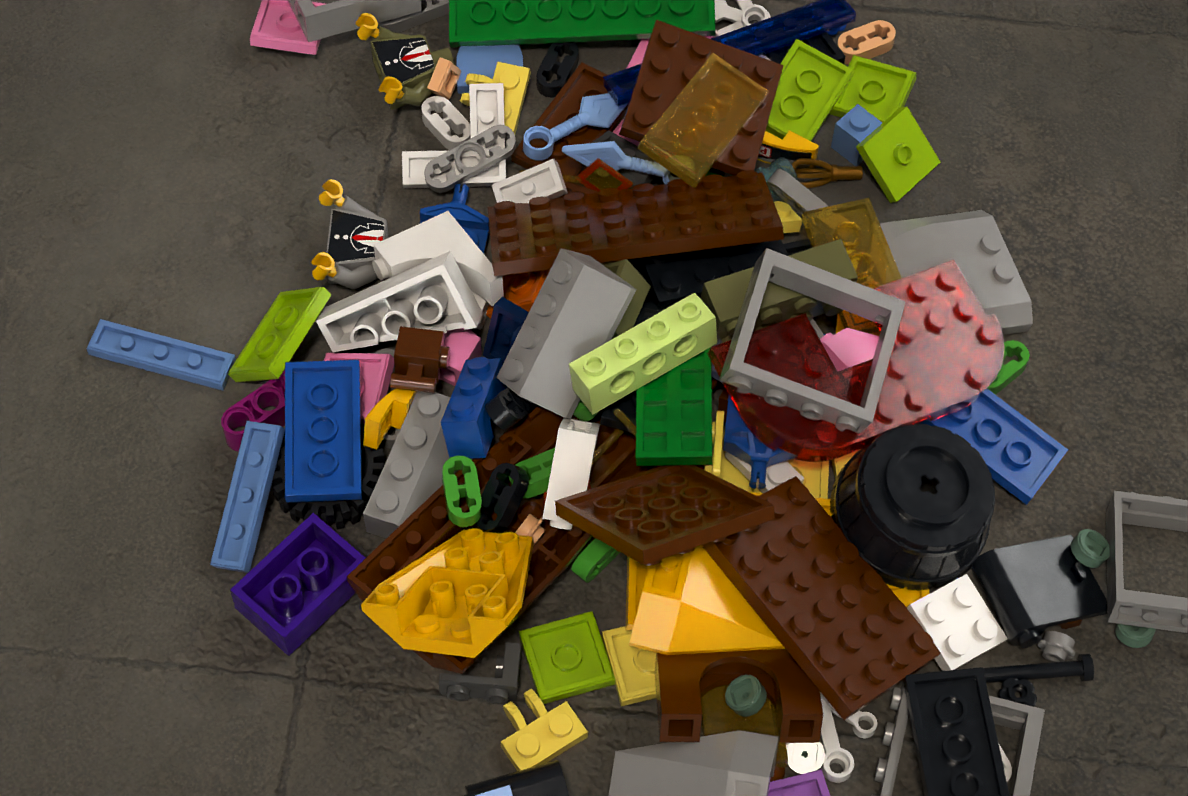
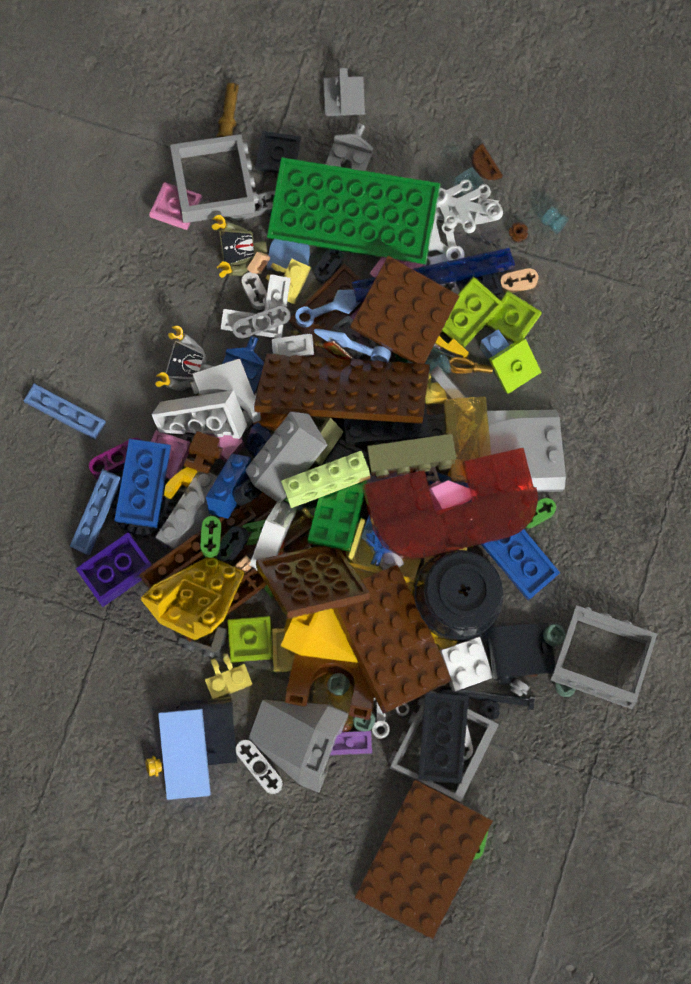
camera: 15 degrees right, 15 degrees up
(279, 334) = (131, 415): lime tile -> none
(703, 120) = (399, 329): clear yellow tile -> none
(831, 290) = (433, 464): light grey window -> none

